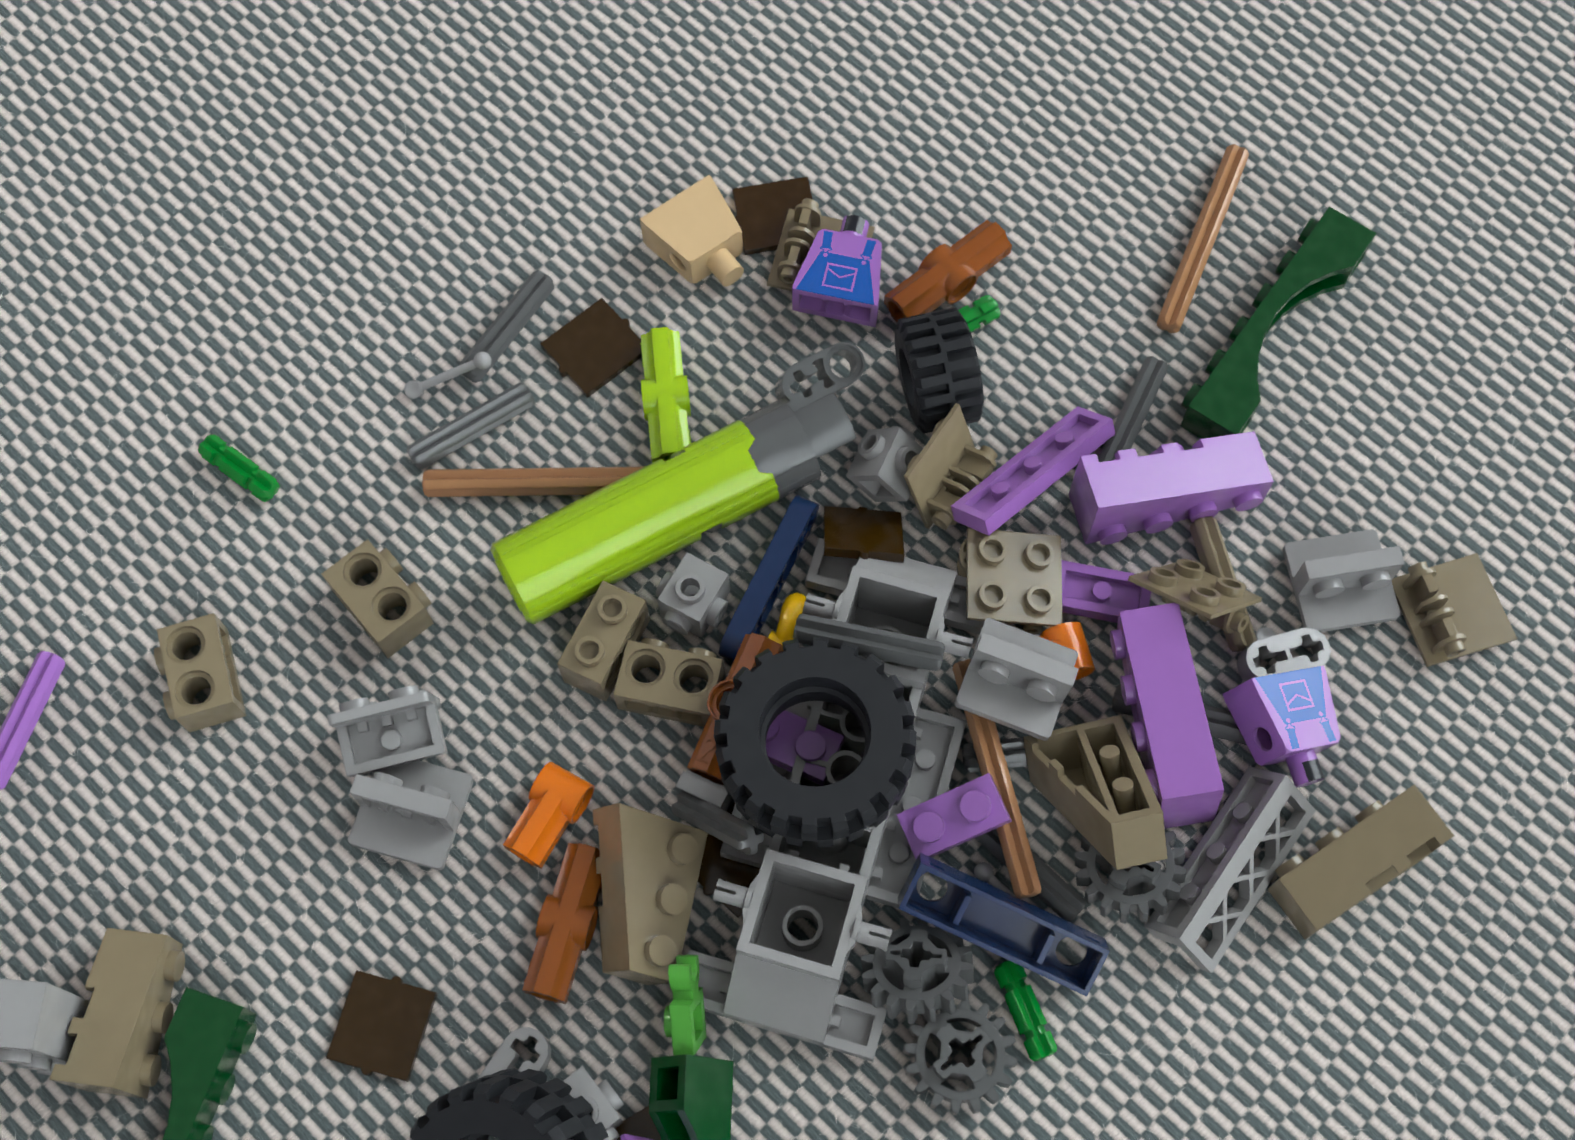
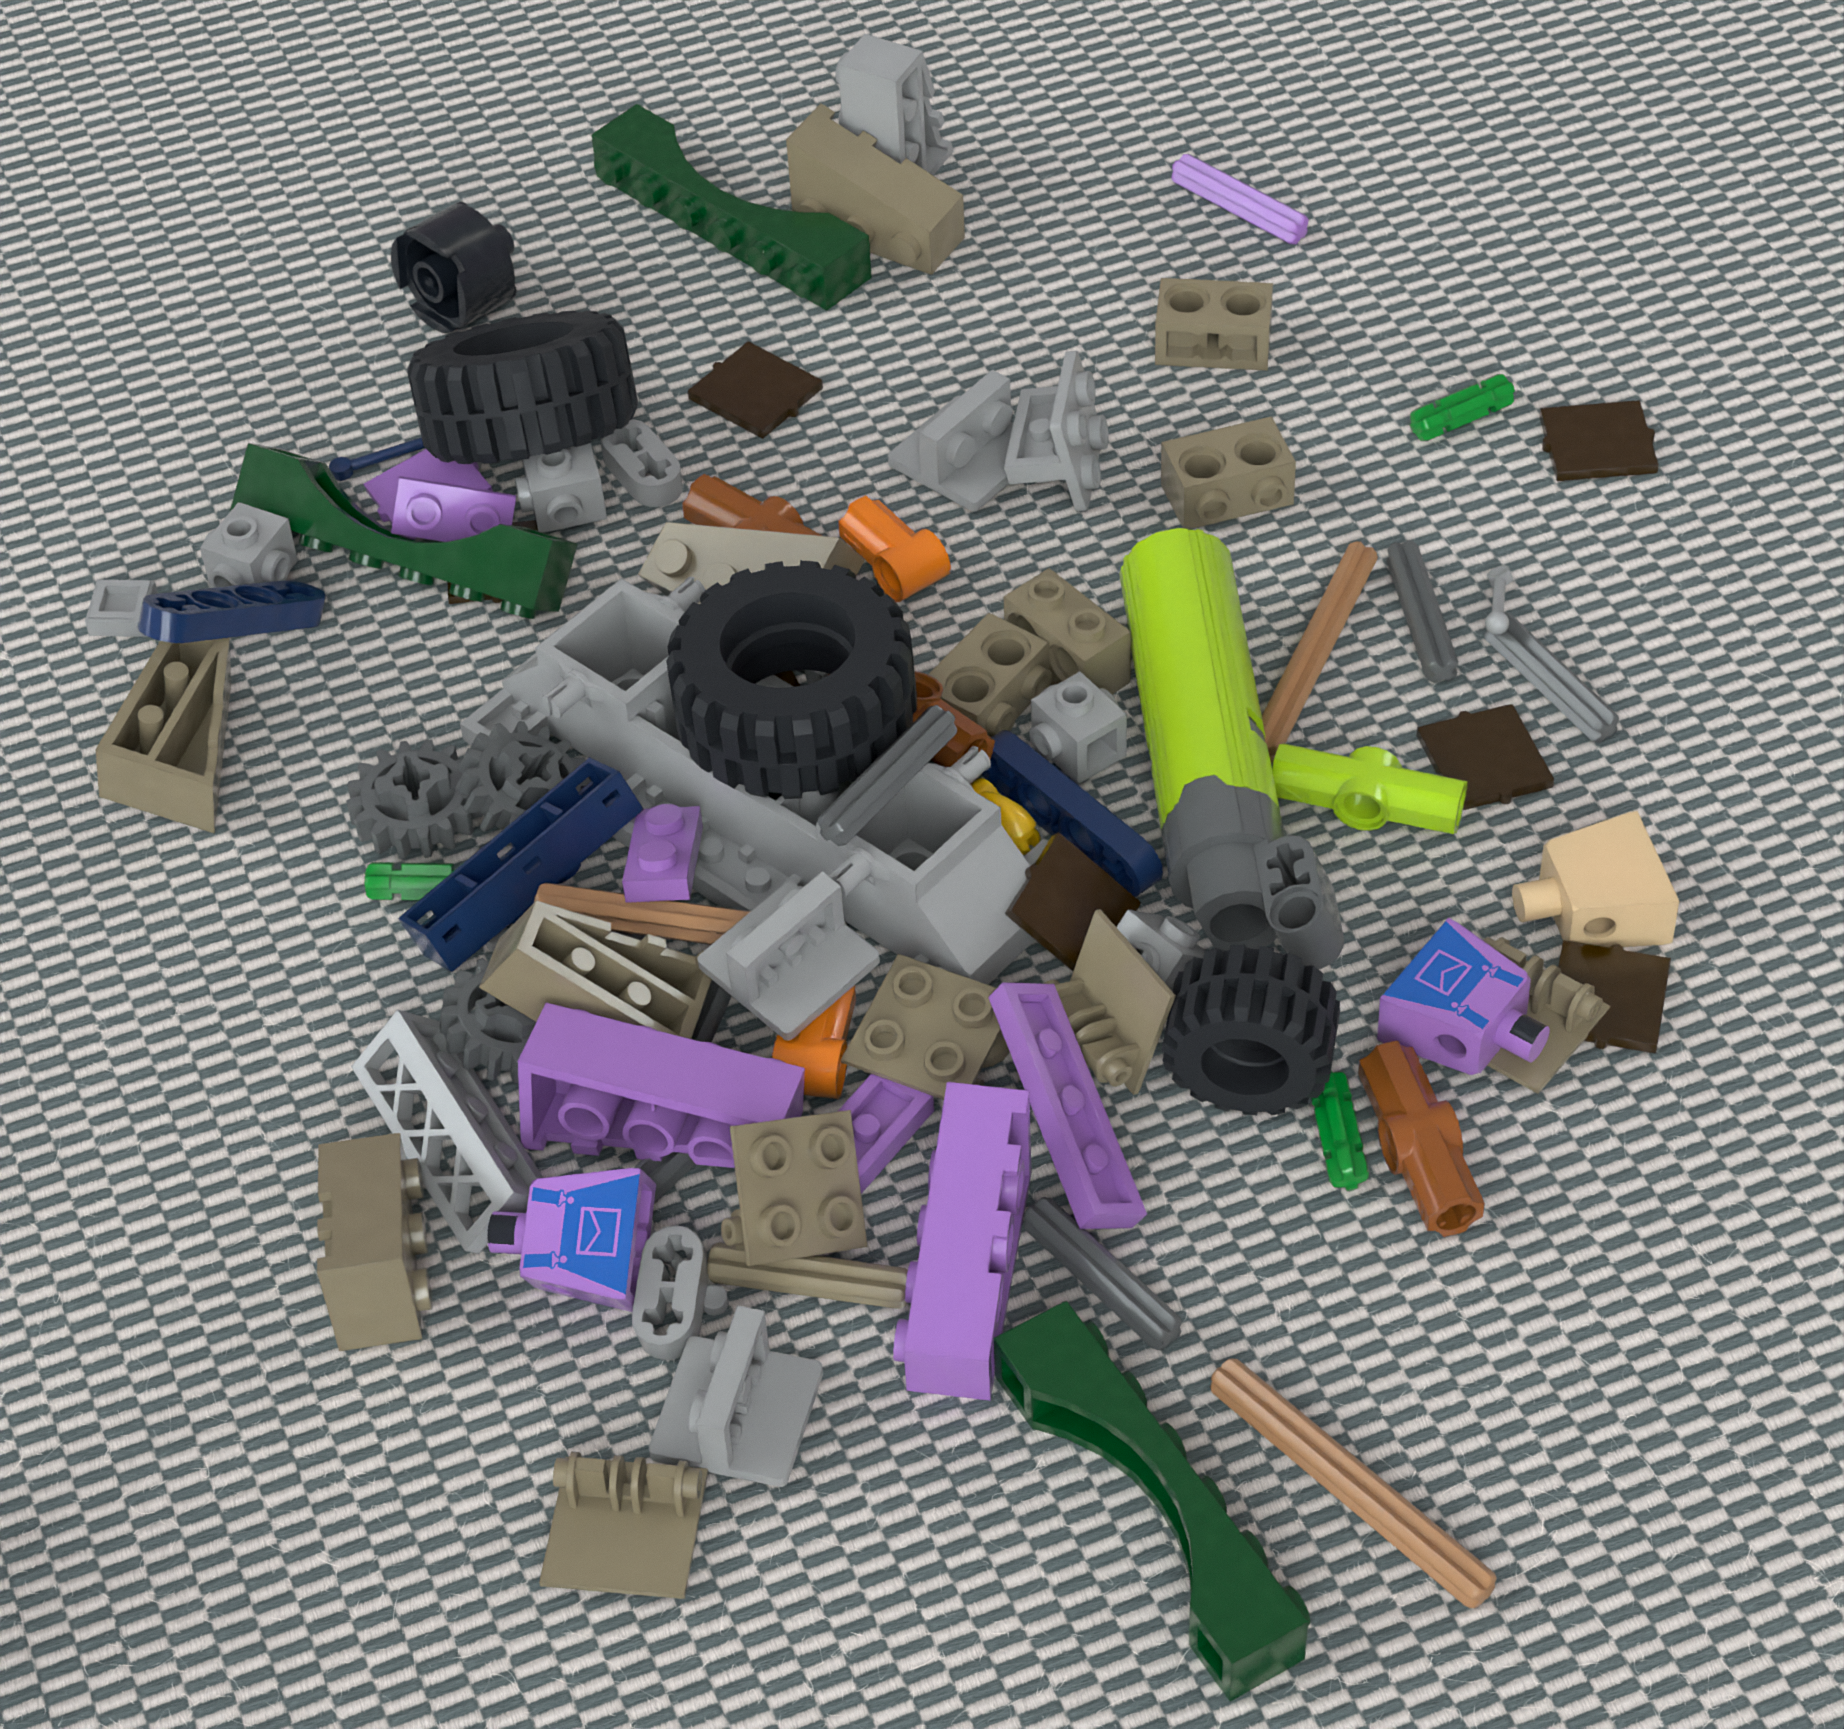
camera: 115 degrees right, 20 degrees down
(240, 371) = (1598, 440): none -> dark brown piece
(686, 1013) = (594, 567): bright green plate -> none

